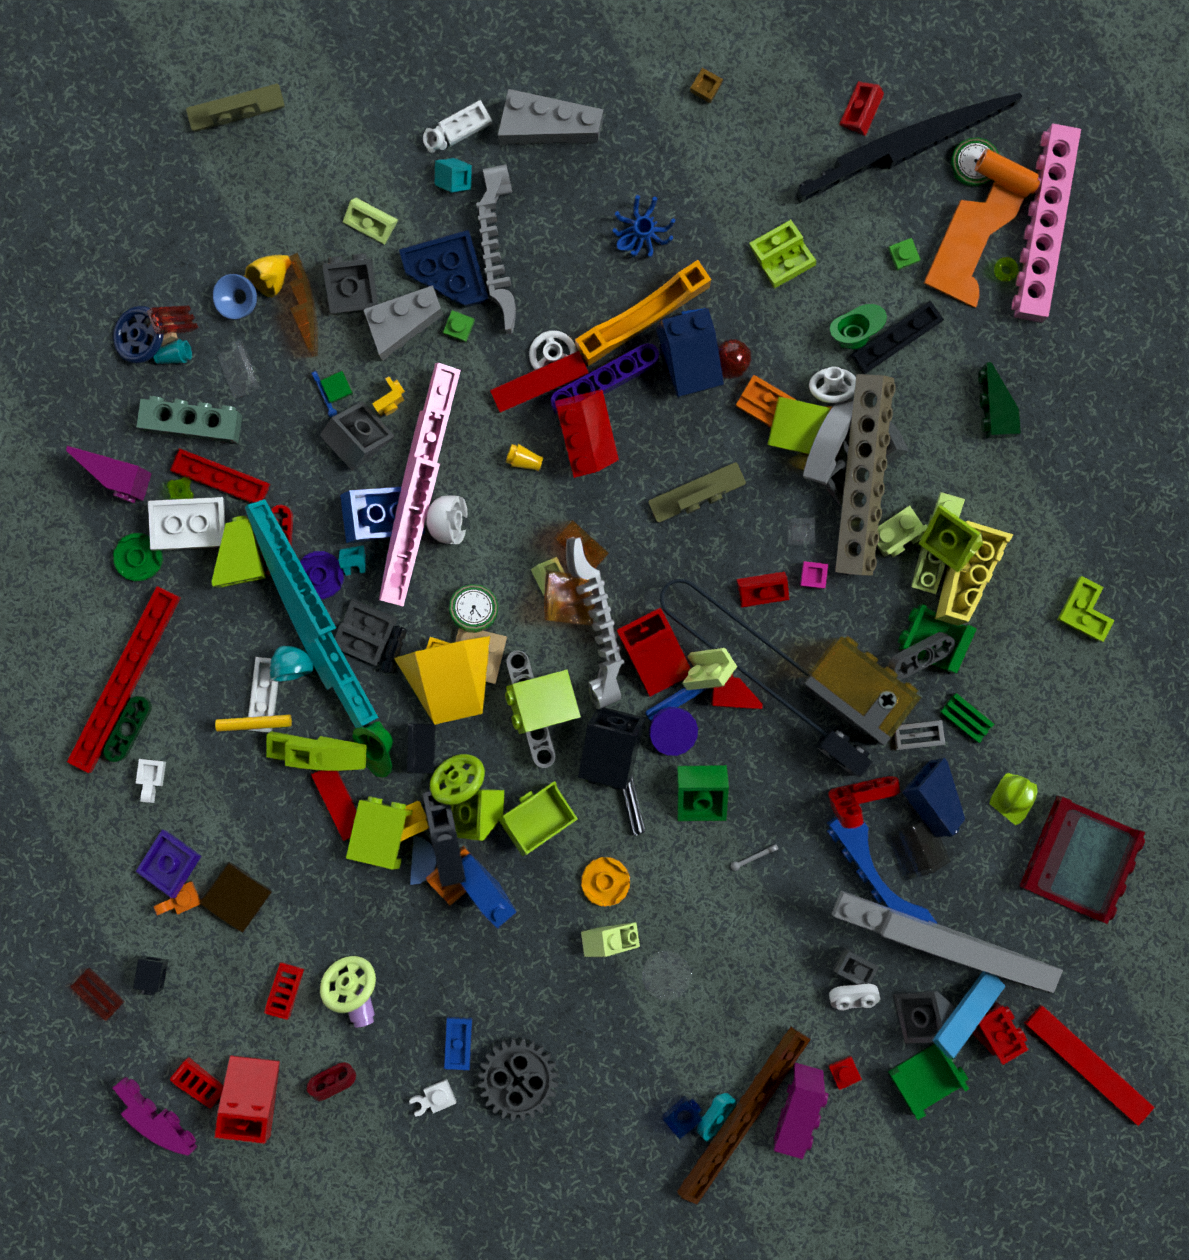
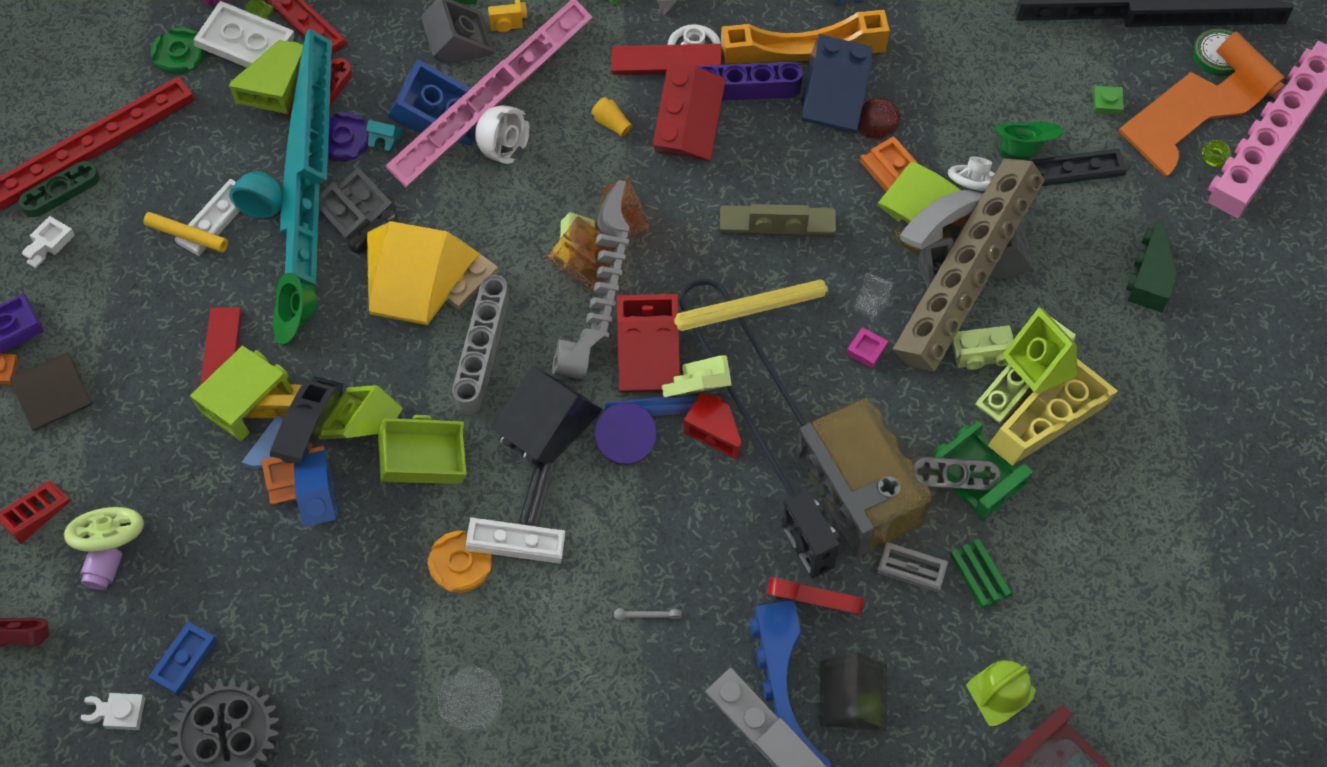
camera: 25 degrees right, 25 degrees down
(316, 754) = (231, 286): lime slope -> none
(421, 748) = (339, 332): black panel -> none
(457, 779) = (358, 372): lime plate -> none
(473, 608) = (479, 225): tile -> none
(542, 702) = (497, 334): lime panel -> none
(610, 940) = (427, 622): yellowish green slope -> none
(637, 849) = (515, 540): none -> white tile
(702, 793) = (622, 513): green slope -> none
(718, 589) = (750, 305): none -> light yellow axle
(763, 589) = (802, 342): red slope -> none
(782, 254) = (977, 52): lime slope -> none
(936, 798) = (900, 640): dark blue slope -> none
(1079, 610) = (1168, 518): lime plate -> none

